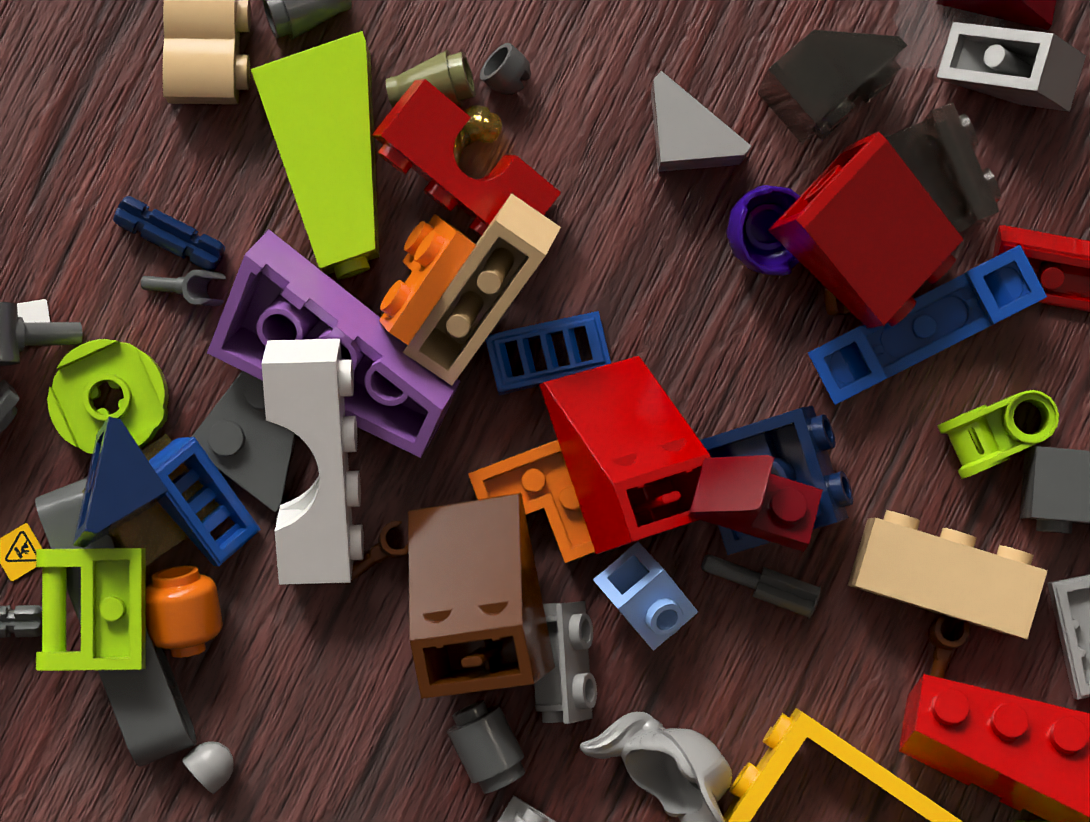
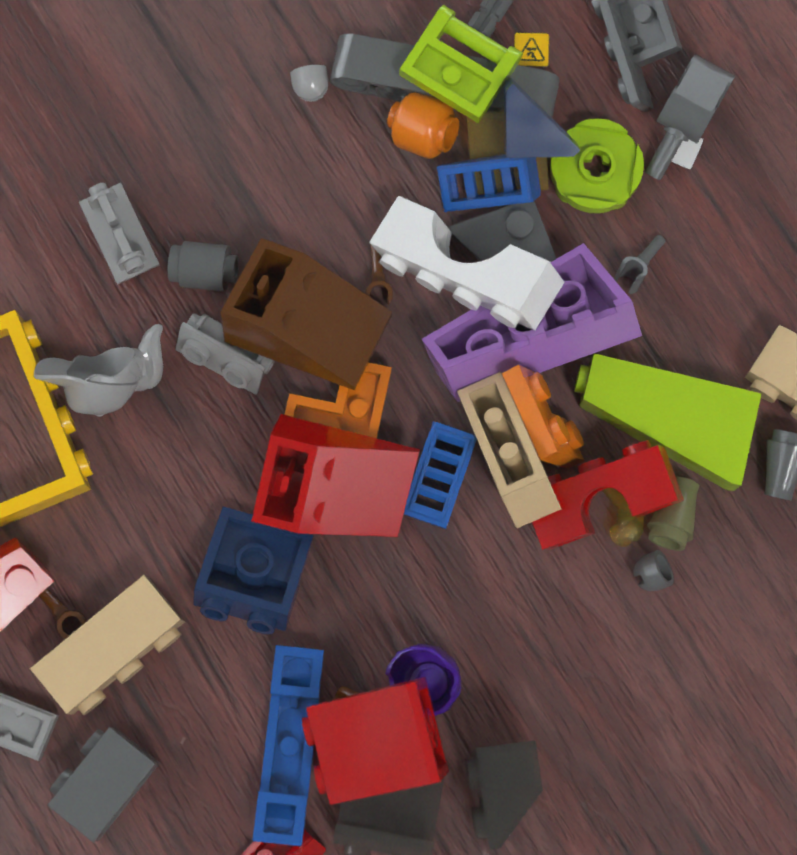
camera: 120 degrees right, 5 degrees down
(169, 233) = (683, 274): dark blue axle -> none
(645, 595) = (231, 431): light blue brick -> none
(689, 133) = (530, 667): light grey slope -> none
(751, 500) = (243, 539): dark red slope -> none
(768, 585) = (184, 522): dark grey axle -> none
(996, 432) = (184, 745): lime piece -> none

